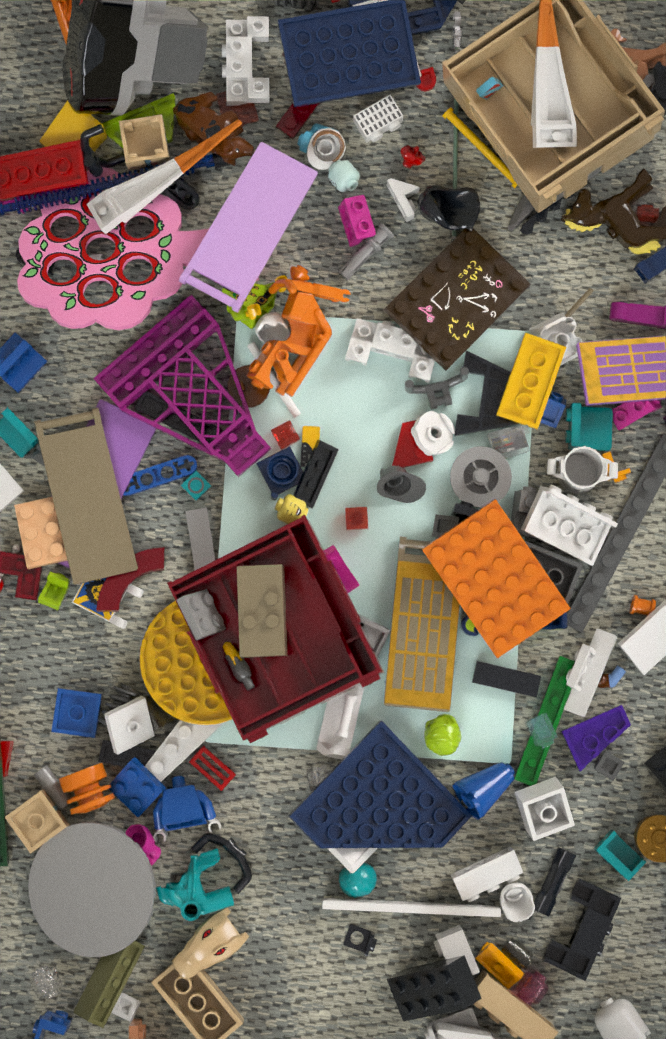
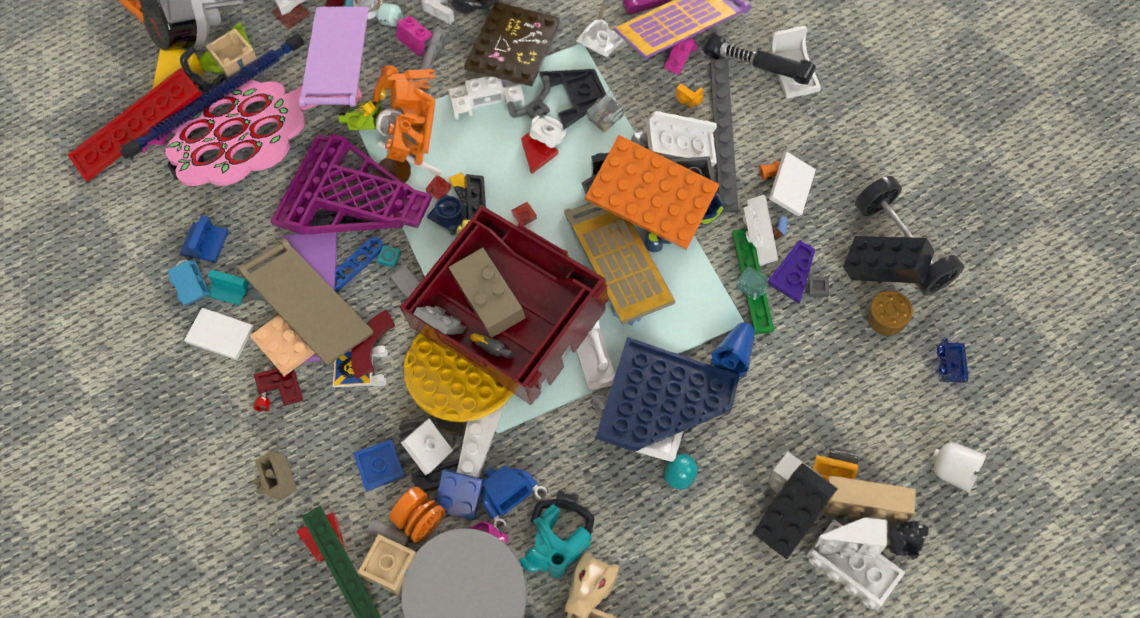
camera: 25 degrees left, 20 degrees down
(54, 590) = (313, 381): lime bracket -> none
(128, 198) = (237, 88): white plate -> none
(179, 191) = (275, 73): black plate -> none
(198, 756) = (532, 447): red tile -> none
(202, 122) = (277, 26): reddish brown animal -> none
(368, 943) = (719, 514): black bracket -> none
(400, 485) = (544, 175): dark grey piece -> none
(411, 907) = (735, 468): white tile -> none
(442, 734) = (680, 325): lime hair -> none
(480, 476) = (596, 137): light grey wheel -> none
(487, 874) = (779, 409): white slope -> none
(506, 679) = (703, 265): black tile -> none
(517, 902) = (816, 417): white hair -> none
(531, 381) = (596, 65): yellow tile -> none
(532, 987) = (871, 473): clear pink head -> none
(544, 808) = (791, 336): white brick -> none
(547, 895) = (831, 377): black axle -> none
(553, 410) = (623, 82): blue bracket -> none
(582, 469) = (668, 95): white container -> none
(589, 427) = (655, 81): teal bracket -> none
(589, 932) = (886, 411): black bracket -> none
(619, 855) = (869, 346): teal panel -> none

